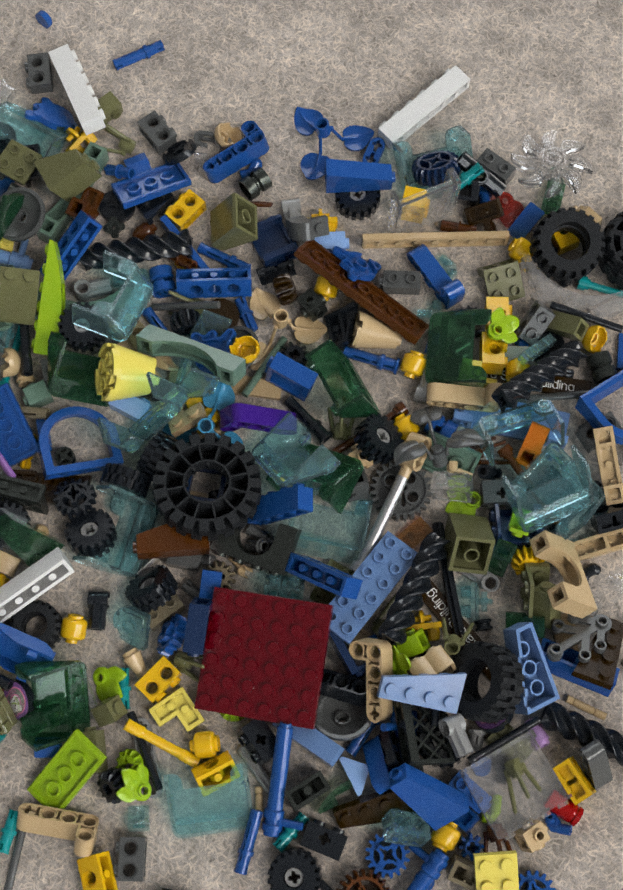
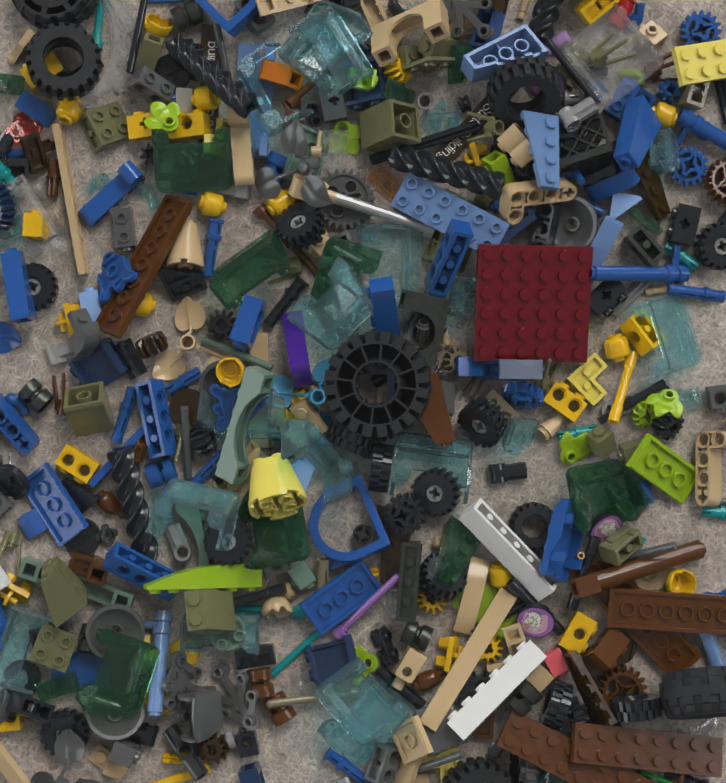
camera: 95 degrees left, 15 degrees up
(73, 628) = (528, 491): yellow head -> none
(120, 171) = (44, 540): blue axle -> none
(312, 305) = (165, 314): pearl dark grey brick -> none
(401, 662) = (520, 174): lime plate -> none
(537, 349) = (181, 81): clear light blue beam -> none

